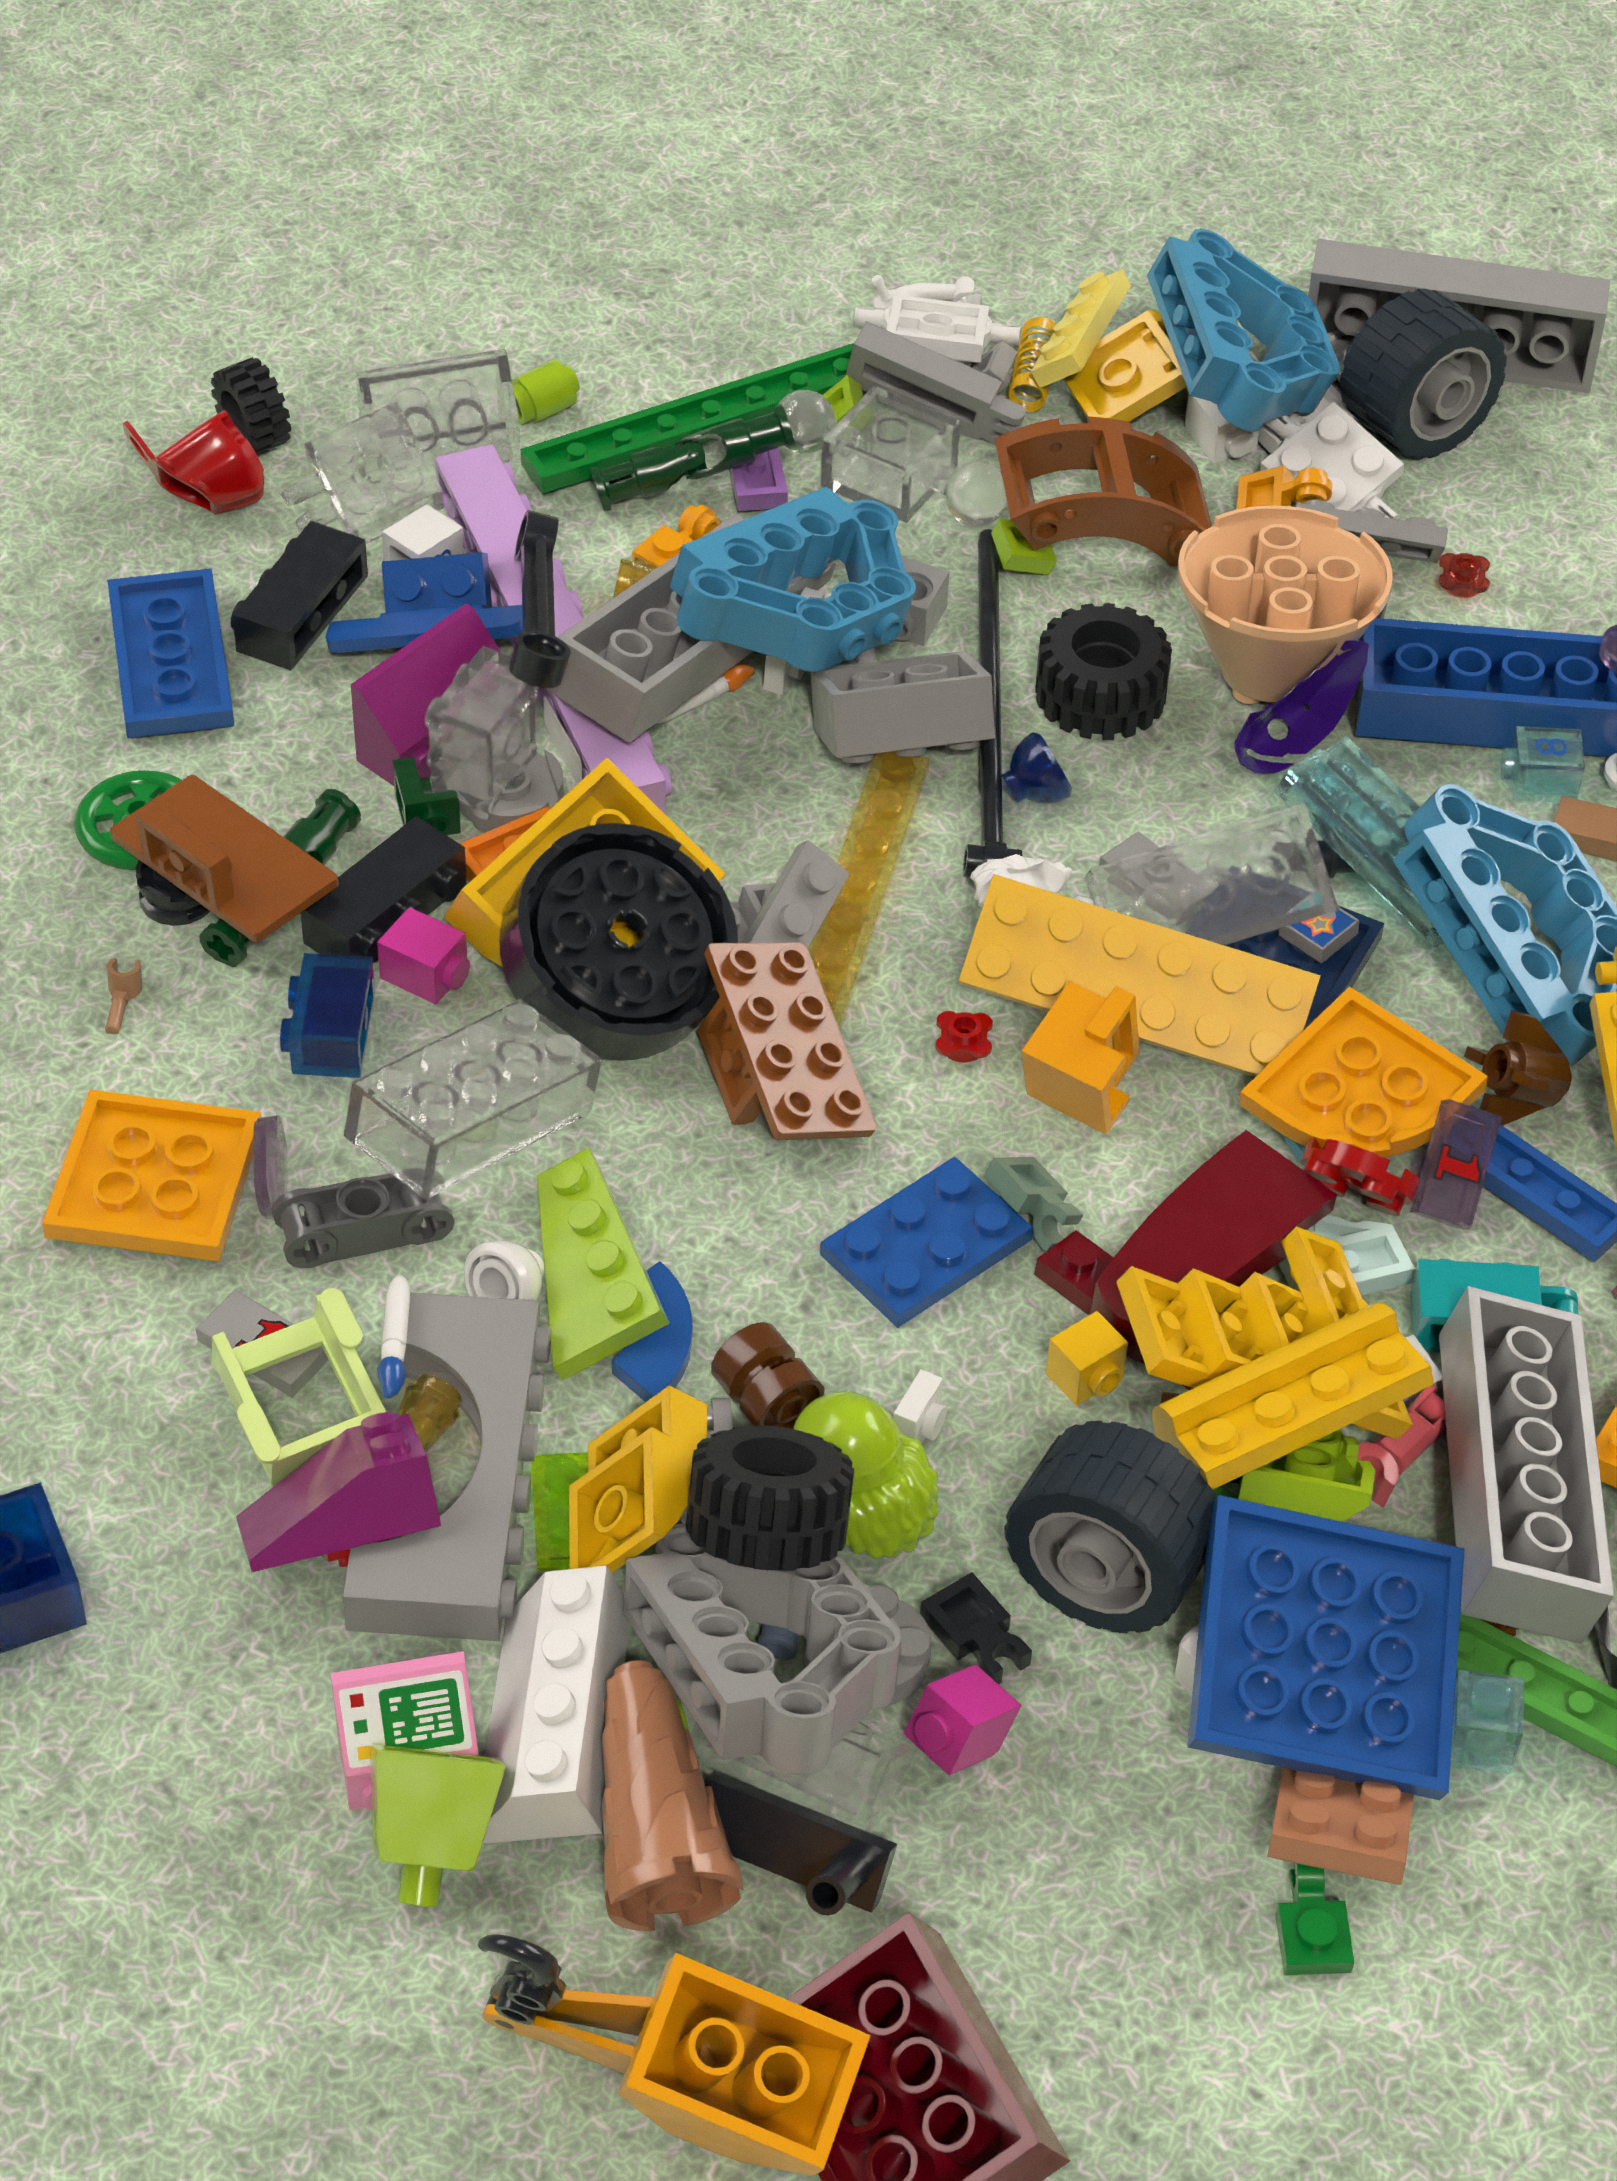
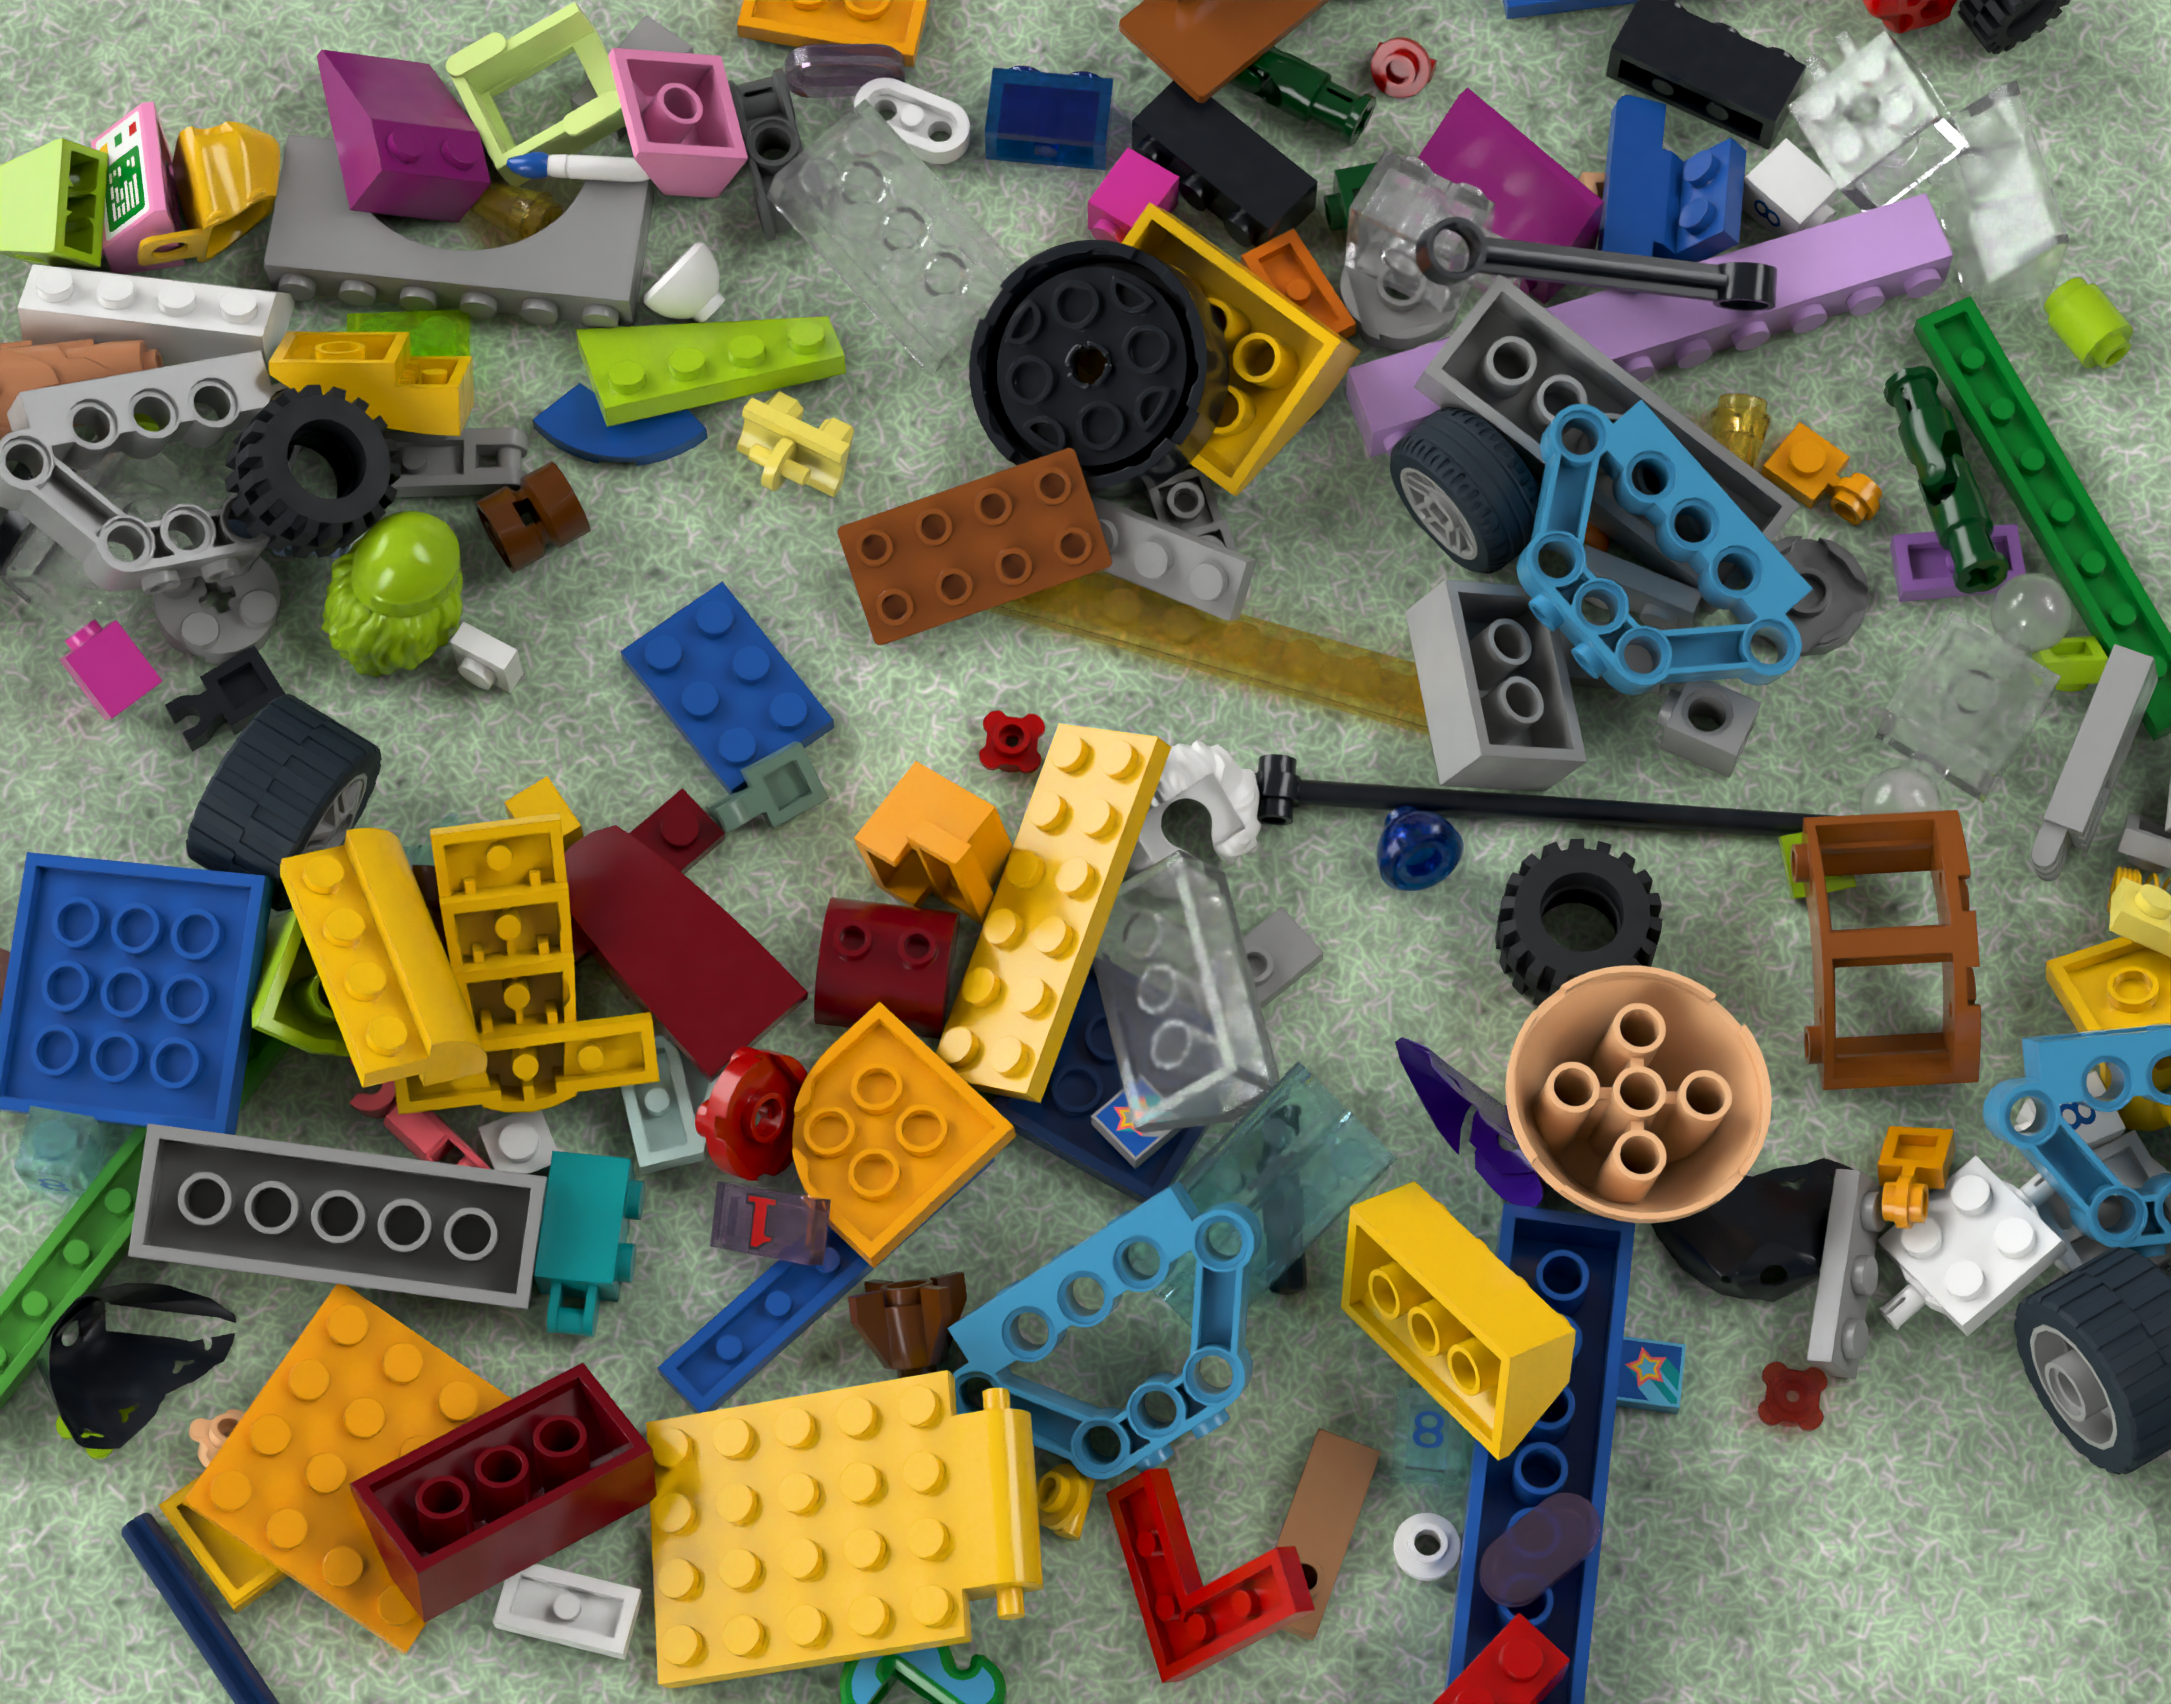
camera: 95 degrees right, 20 degrees up
(283, 787) = (1401, 67): none -> plate
(320, 1121) = (920, 116): none -> white plate
(349, 1255) = (679, 119): none -> bright pink slope
(405, 1628) = (225, 189): none -> yellow piece
(682, 1191) = (793, 449): none -> light yellow hips
(721, 717) = (1466, 489): none -> black wheel
(1184, 1102) = (889, 957): none -> dark red brick
(1474, 701) = (1454, 1316): none -> yellow slope

